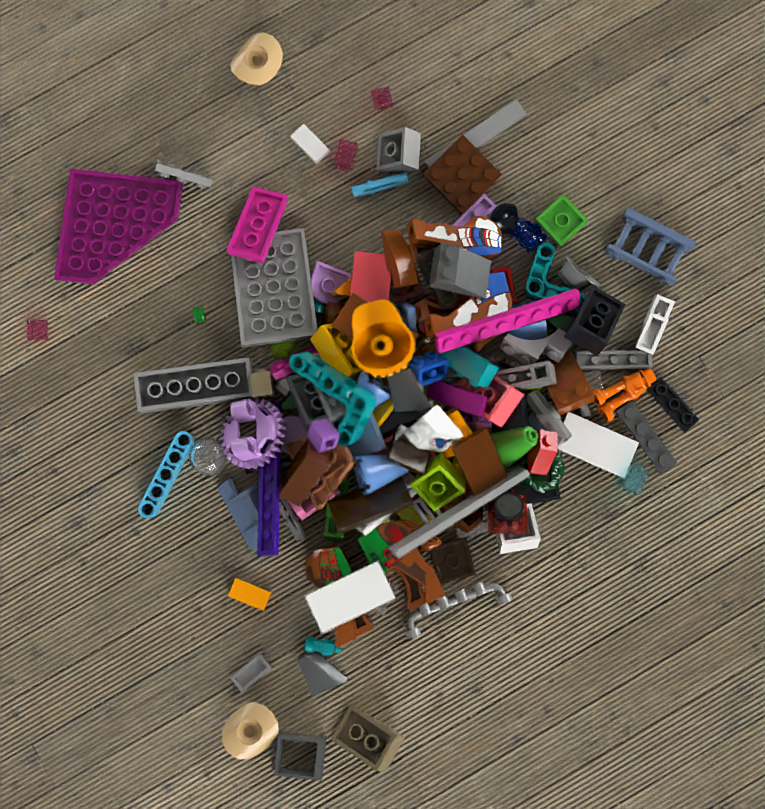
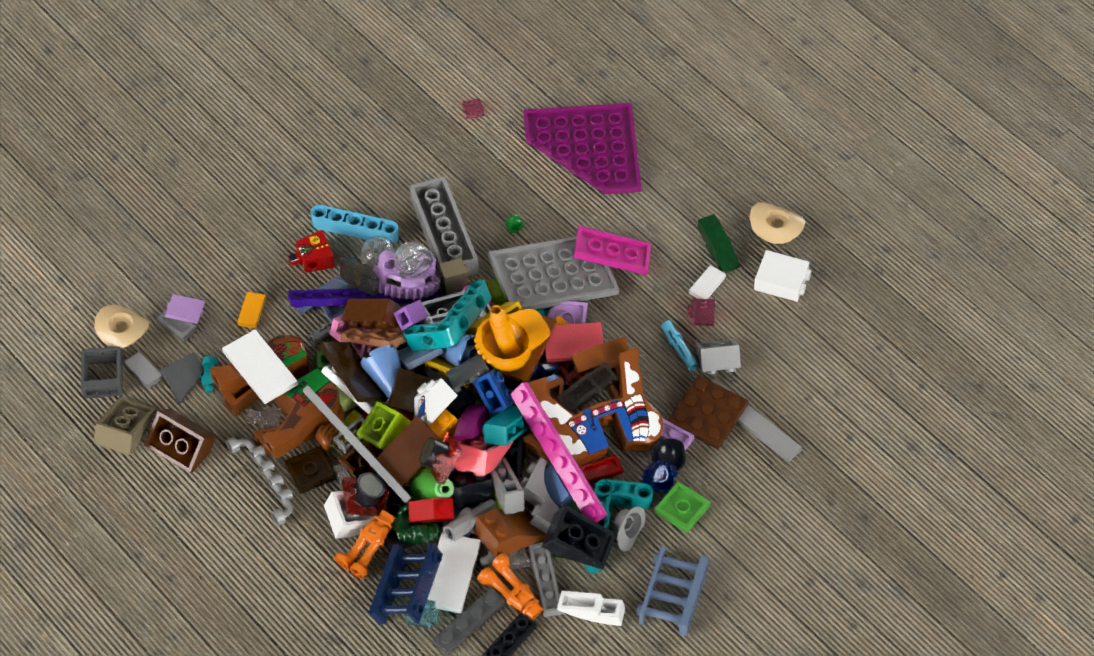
camera: 80 degrees right, 30 degrees down
(183, 176) = (648, 181): light grey wing -> none
(194, 522) = (313, 253): none -> red torso
(236, 662) = (185, 309): none -> lavender piece
(246, 479) = (359, 276): none -> clear smoke slope
(251, 423) = (412, 259): none -> clear cylinder
(267, 122) = (718, 243): none -> dark green slope
(302, 712) = (143, 370): none -> light grey tile
(318, 70) = (782, 276): none -> white brick
(381, 98) = (769, 332): clear pink plate -> none
(396, 685) = (179, 440): none -> reddish brown slope
(459, 271) = (595, 397): dark grey slope -> none
(509, 434) = (440, 457): none -> piece
(547, 510) = (373, 533): none -> orange piece
(607, 507) = (391, 578): none -> dark blue fence

